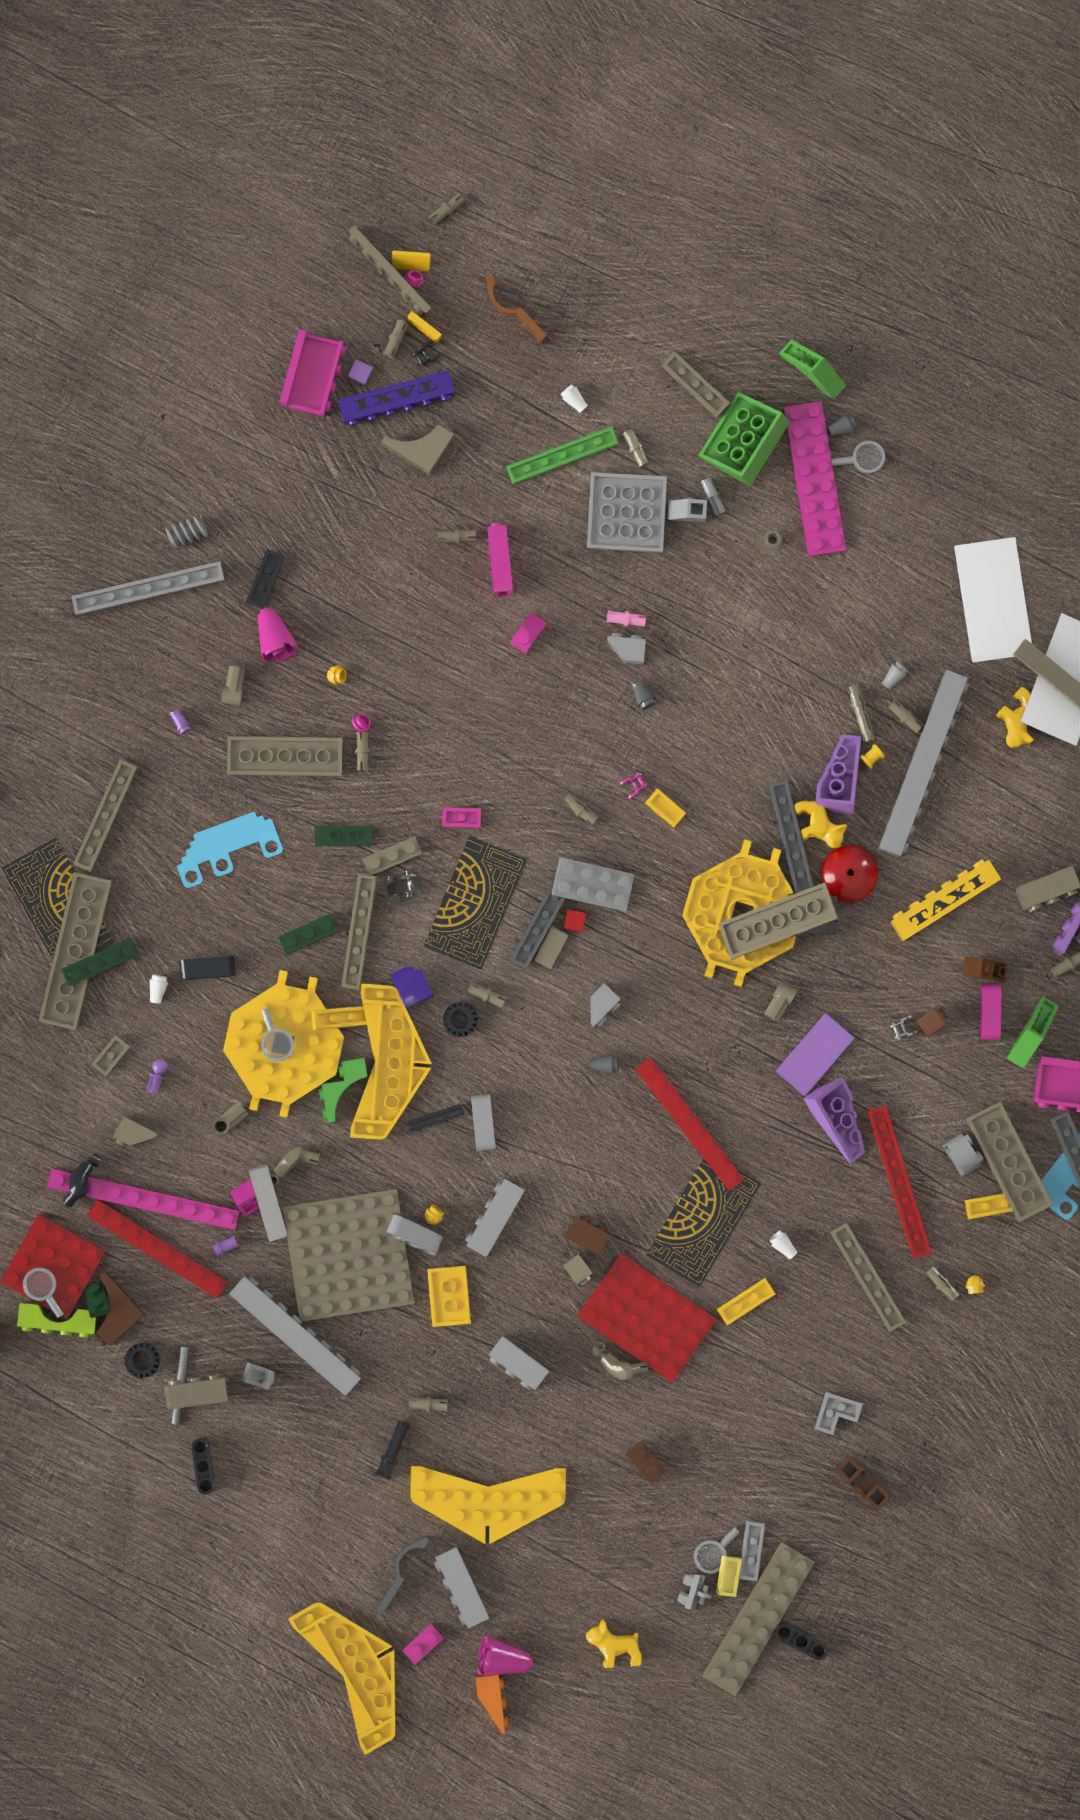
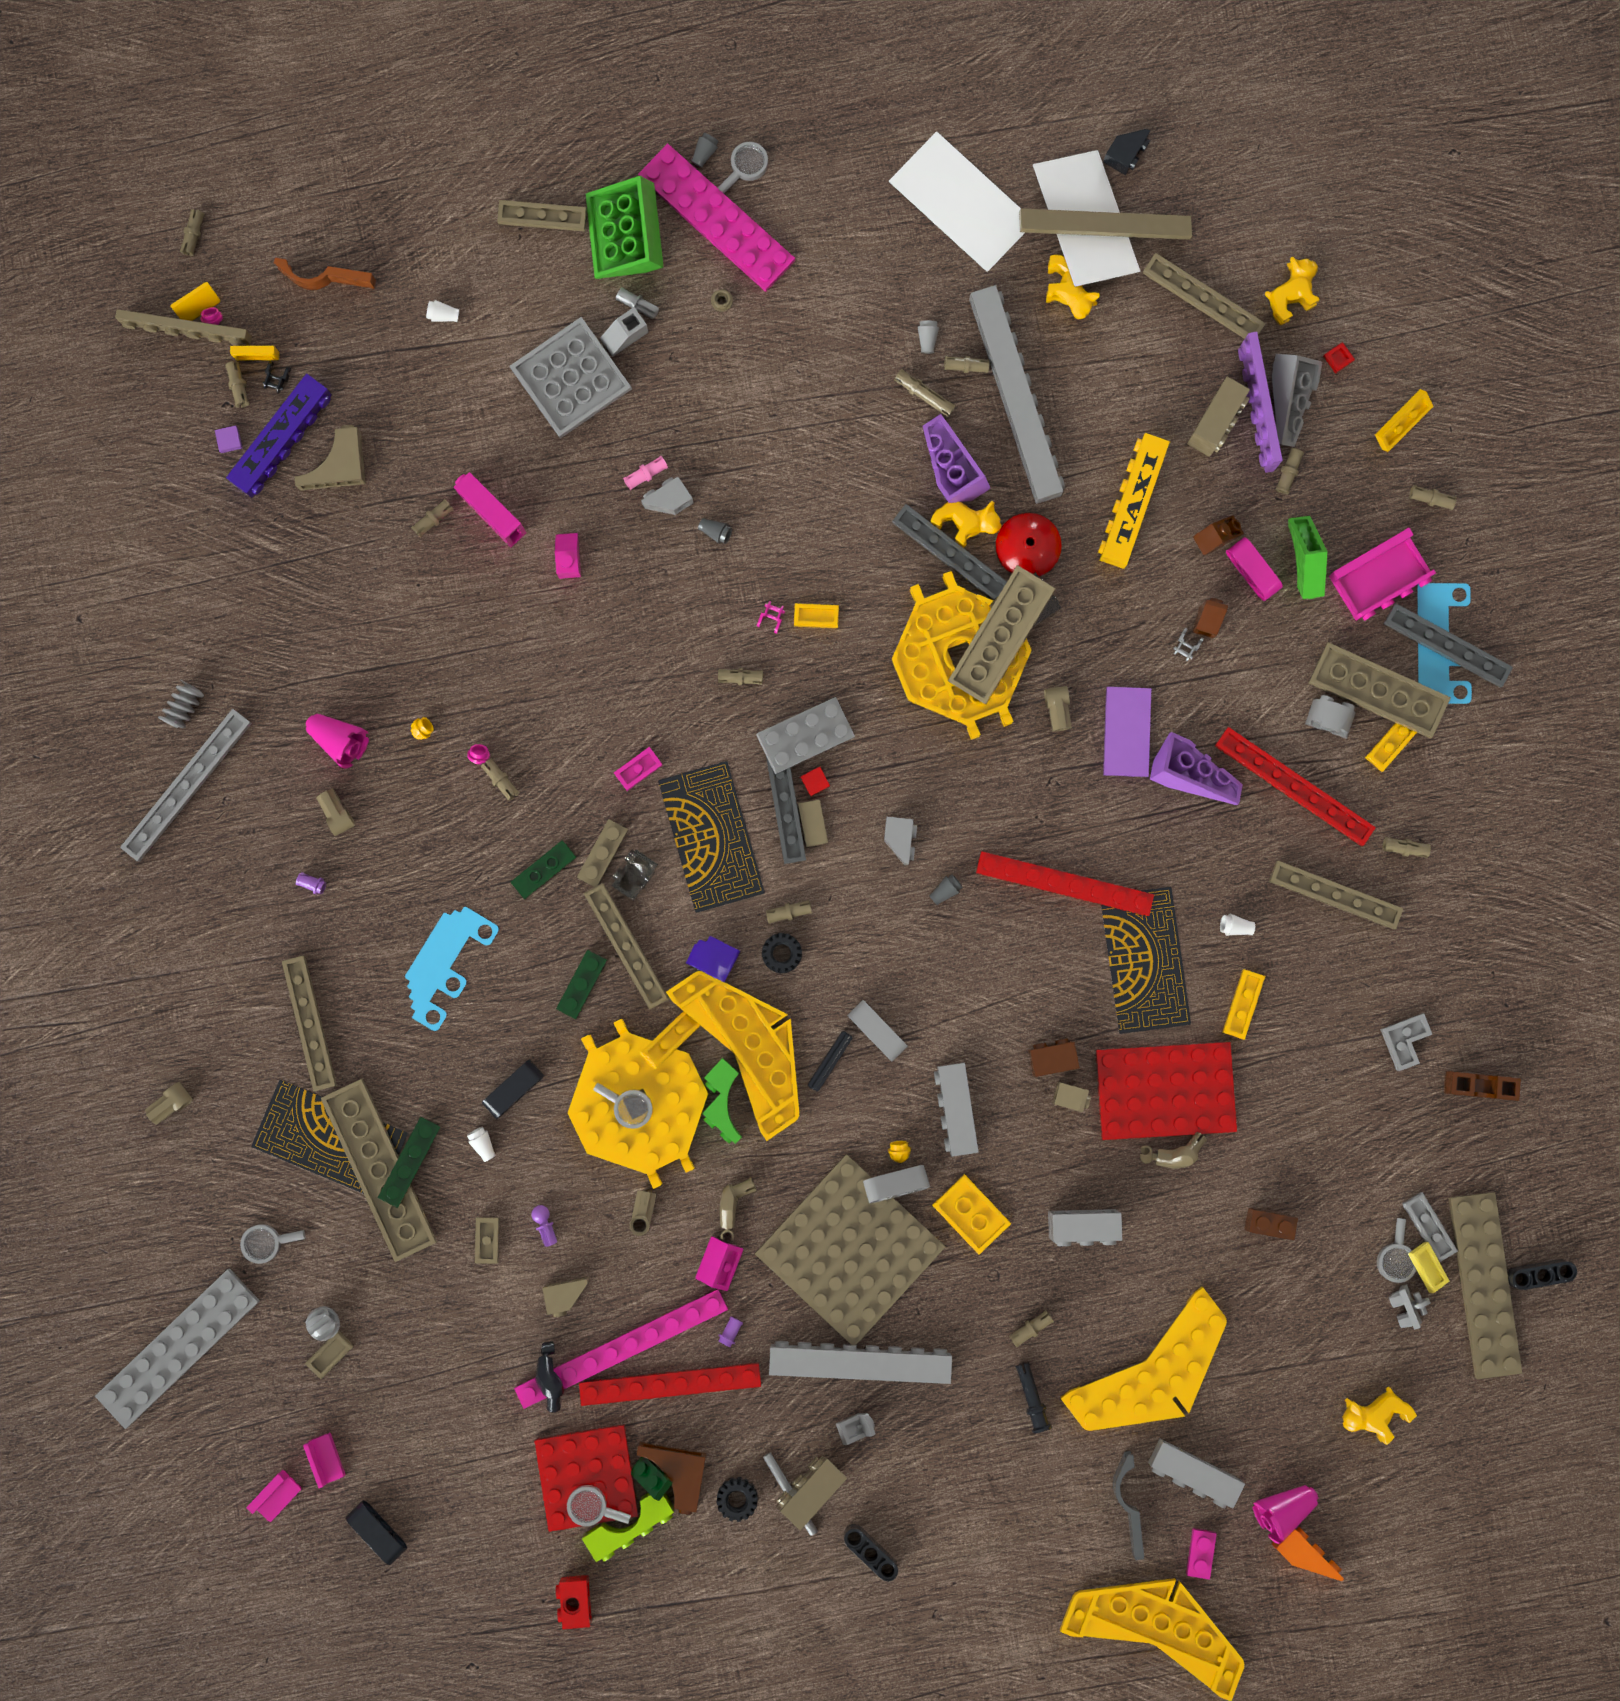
camera: 35 degrees left, 0 degrees up
(265, 579) = (287, 692): black plate -> none
(268, 1203) = (738, 1261): light grey tile -> none
(284, 756) = (432, 840): dark tan plate -> none
(312, 374) = (185, 474): dark pink panel -> none
(562, 455) = (472, 372): bright green tile -> none
(636, 448) = (533, 313): dark tan pin -> none
(814, 367) = (638, 114): bright green arch -> none
(872, 756) = (965, 424): yellow bush -> none
(975, 1285) = (1437, 825): yellow plate -> none

